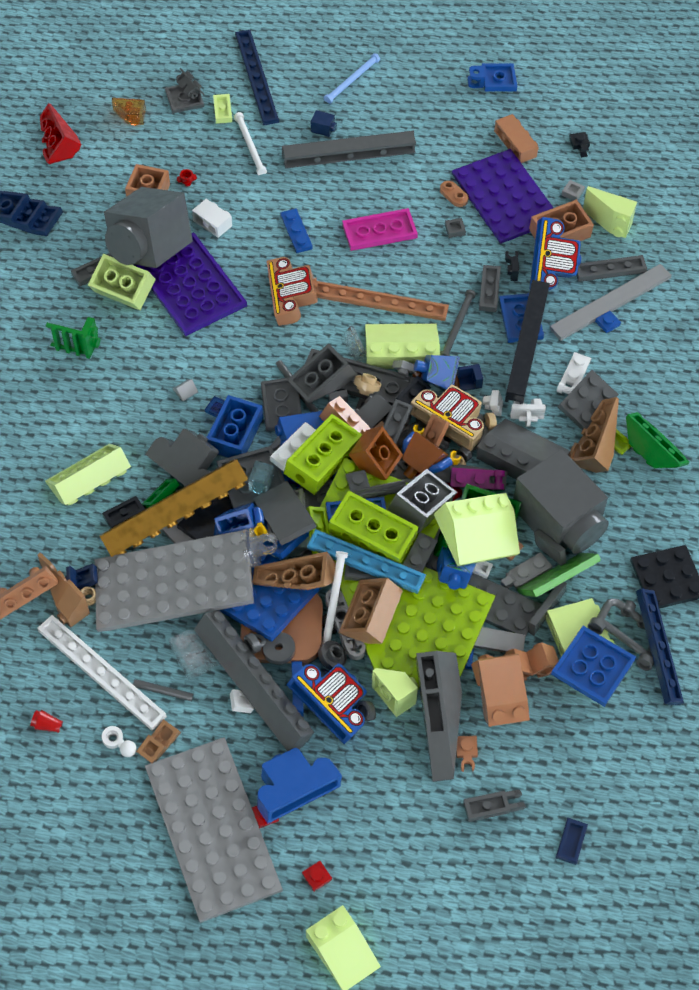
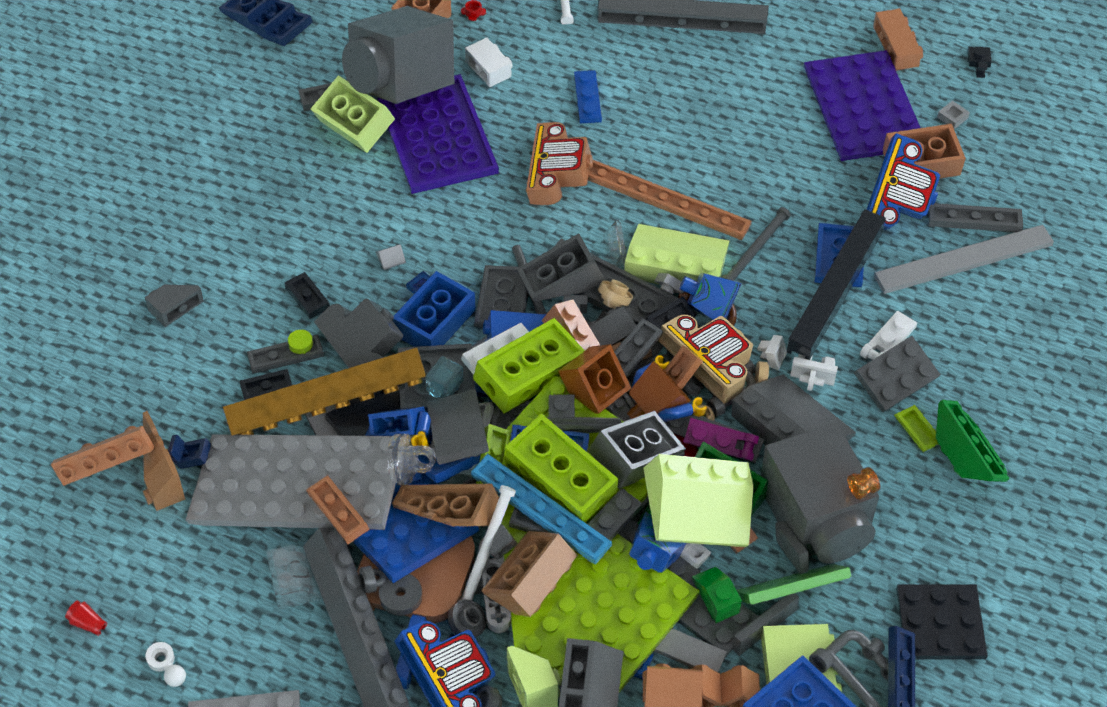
camera: 15 degrees right, 5 degrees down
(28, 462) = (173, 301): none -> dark grey slope
(84, 340) = (285, 172): green plate -> none
(88, 474) = (239, 331): yellowish green slope -> none
(89, 591) = (186, 471): tan plate -> none
(102, 672) = (175, 575): white plate -> none
(129, 484) = (280, 355): none -> dark grey tile
(131, 434) = (307, 295): none -> black plate
(139, 472) = (300, 341): none -> lime tile
(158, 742) = (212, 679): medium nougat slope -> none
(163, 690) = (243, 613): dark grey bar -> none
(164, 490) = (330, 366): green plate -> none
(215, 596) = (337, 509): none -> nougat tile
(239, 702) = (331, 651): white plate -> none
(345, 593) = (502, 543): none -> dark grey slope
(379, 229) = (691, 114): dark pink plate -> none
(453, 193) = (799, 90): nougat plate -> none
(455, 228) = (787, 130): dark grey plate -> none
(470, 377) = (751, 314): dark blue panel -> none
(489, 288) = (810, 211): dark grey plate -> none
(509, 594) = (718, 594): none -> green slope
(513, 268) = (846, 192): black plate -> none
(526, 571) = (757, 570): light grey hinge -> none
(596, 490) = (863, 483): none -> clear orange wheel
(597, 444) = (894, 430): medium nougat wedge -> none
(608, 321) = (953, 282): blue plate -> none
(610, 211) = (993, 147): yellowish green slope -> none

